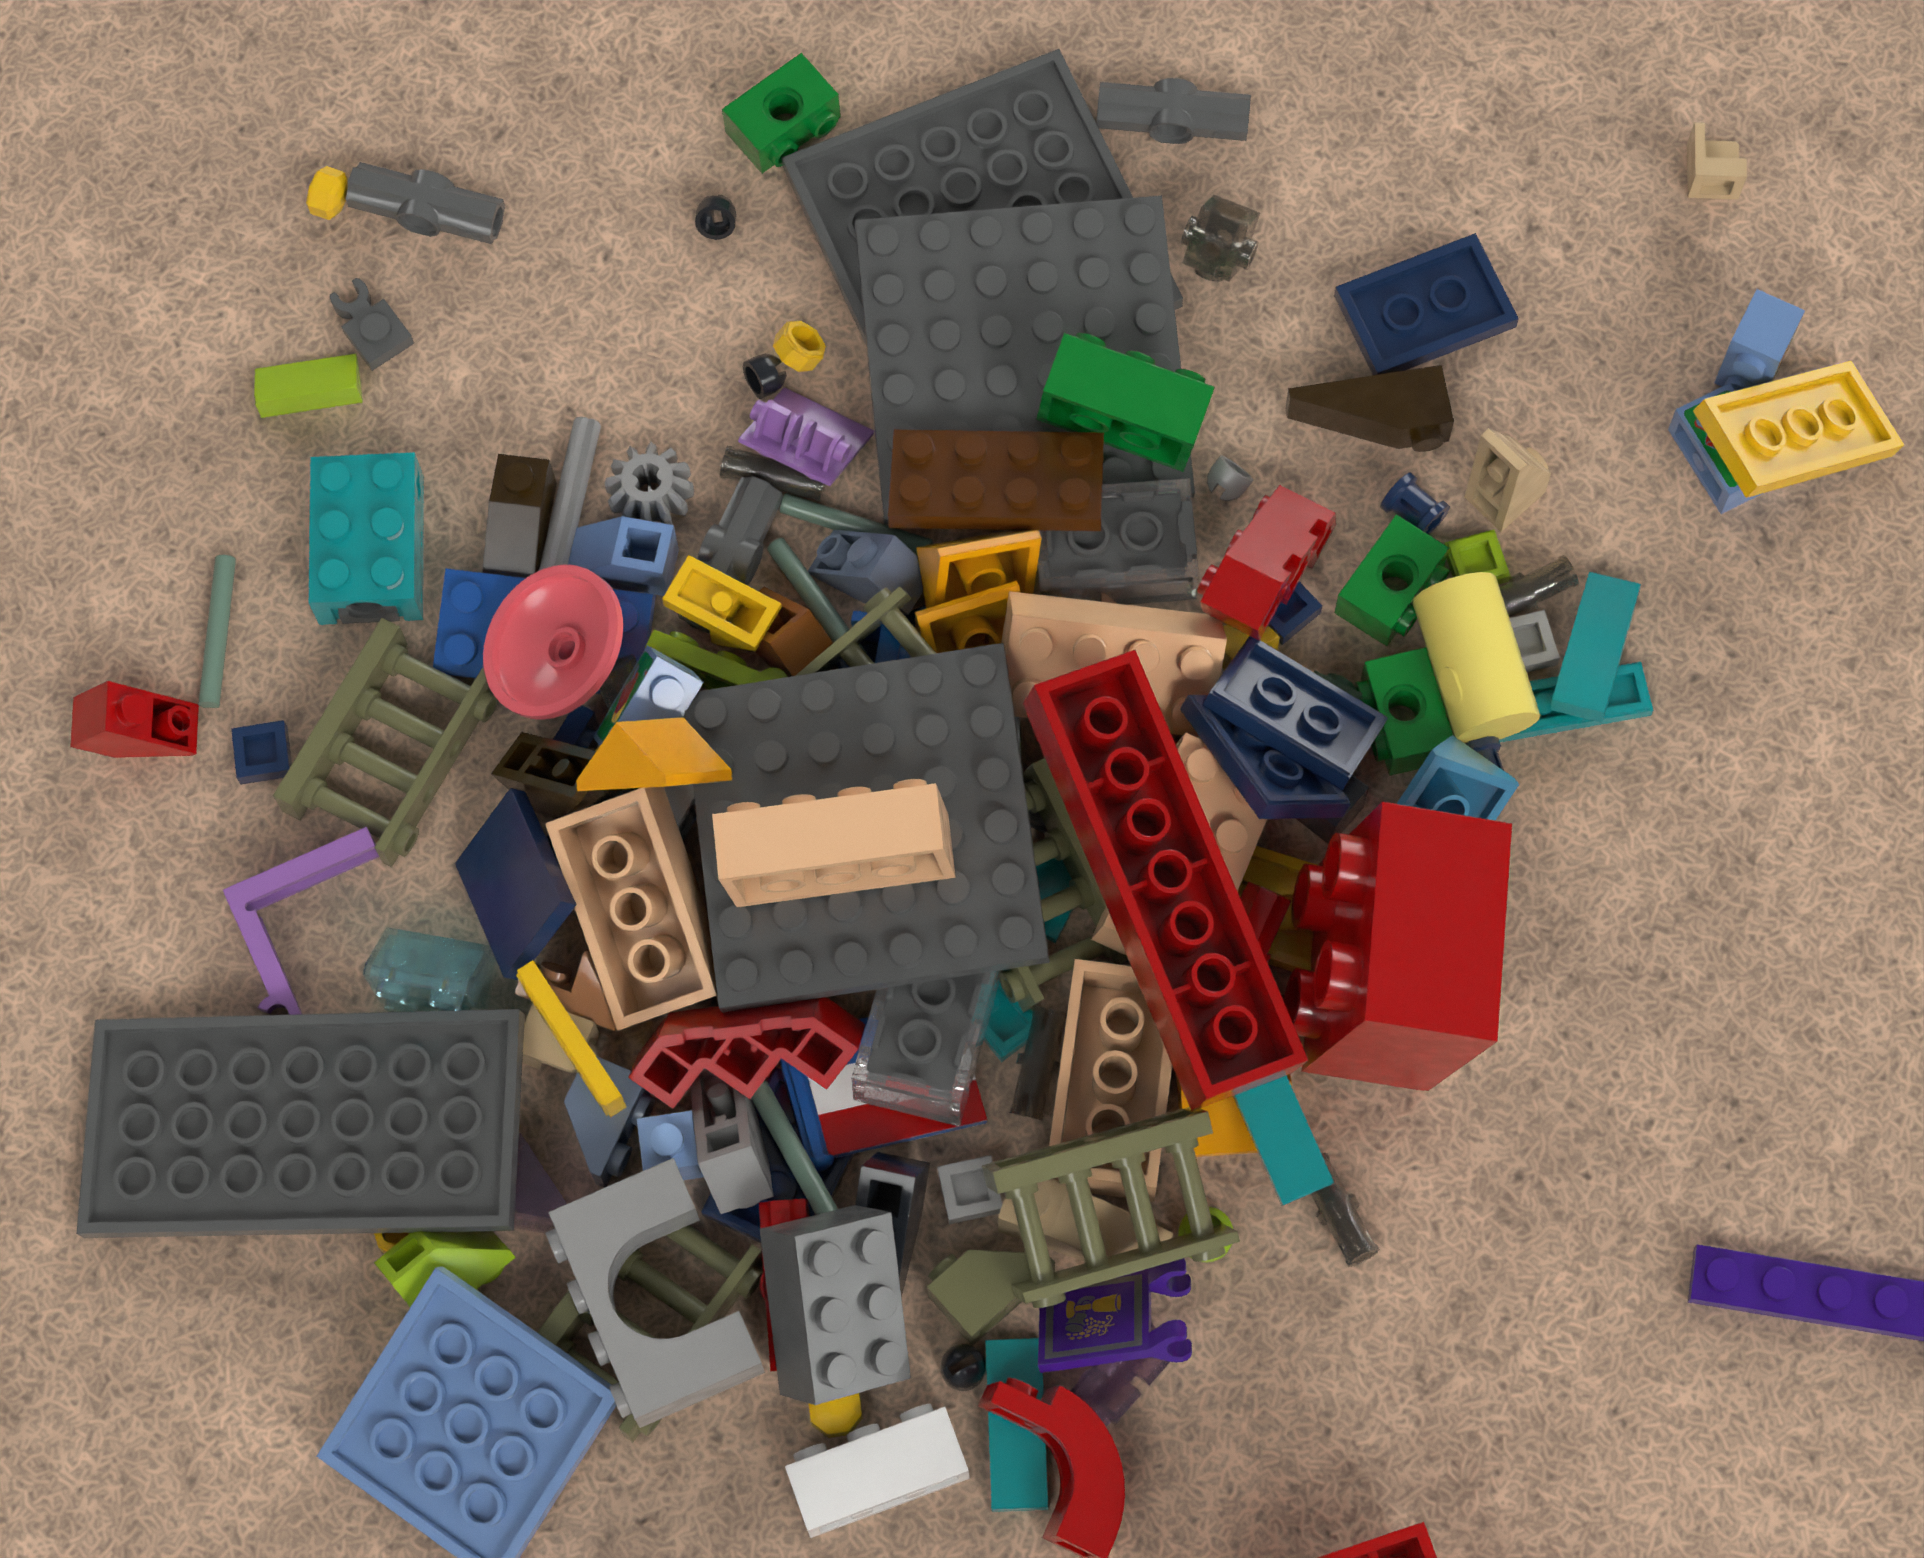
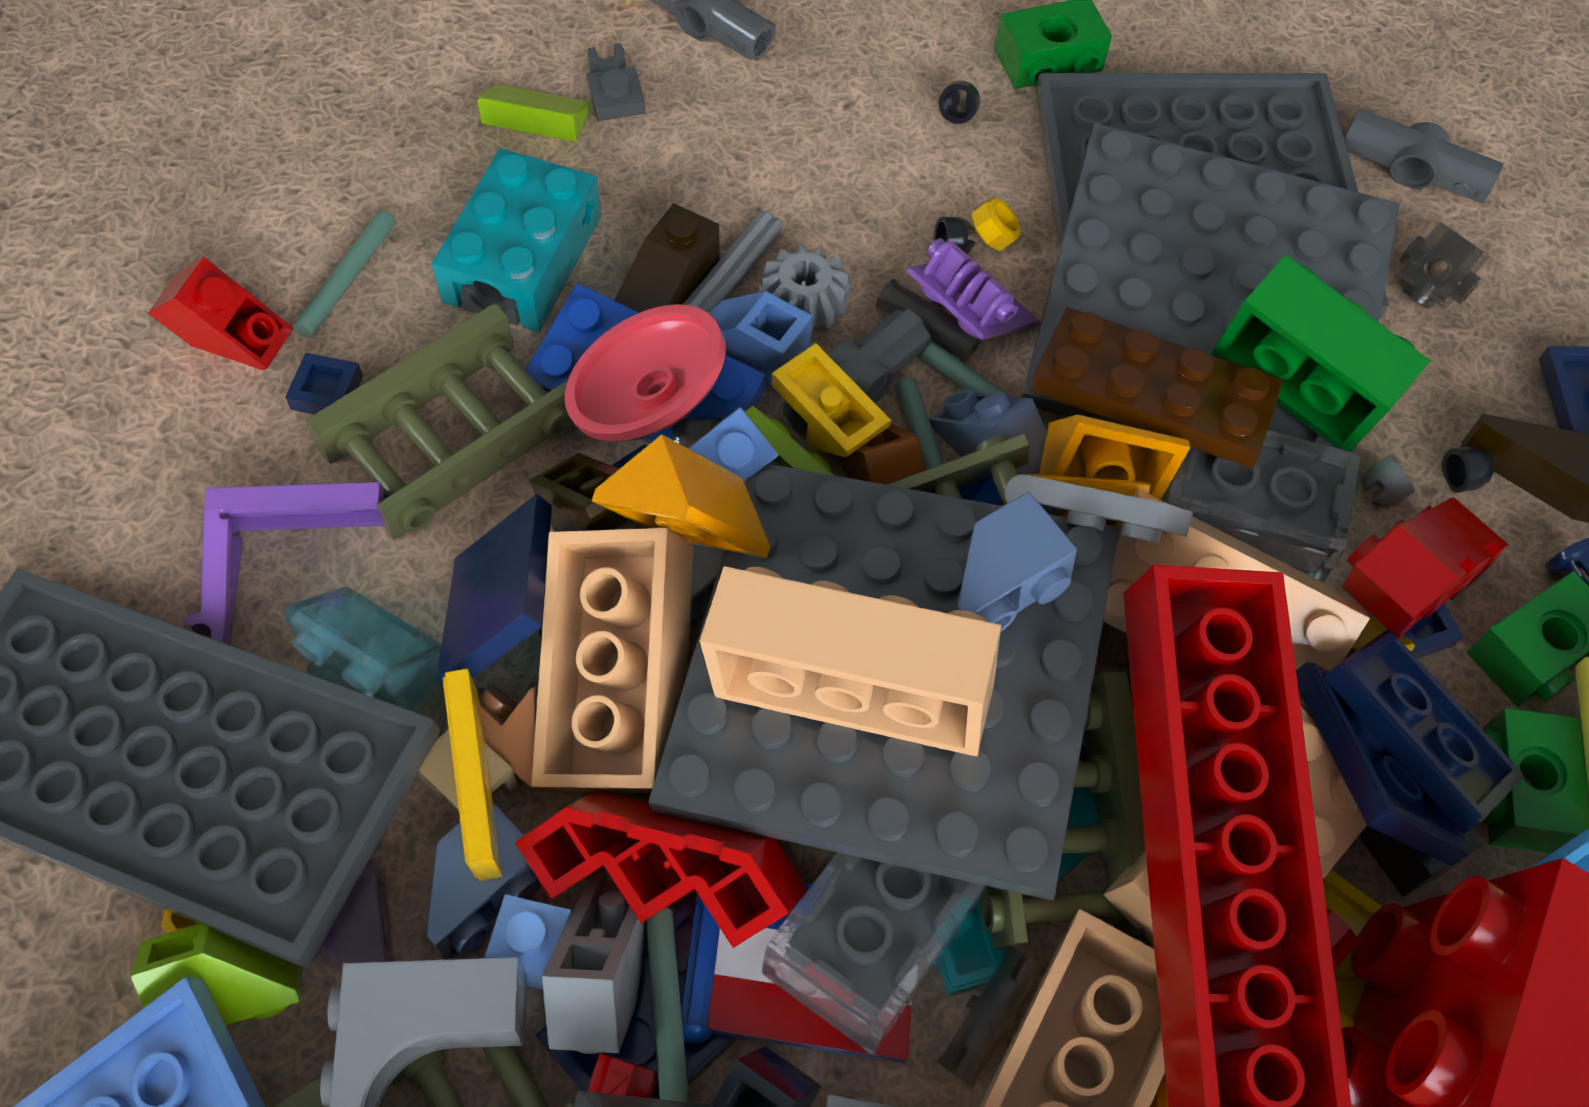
camera: 15 degrees right, 10 degrees down
(926, 716) = (1015, 561): none -> sand blue slope
(979, 633) = (1092, 507): none -> light grey plate
(1294, 438) = (1467, 468): none -> black hinge

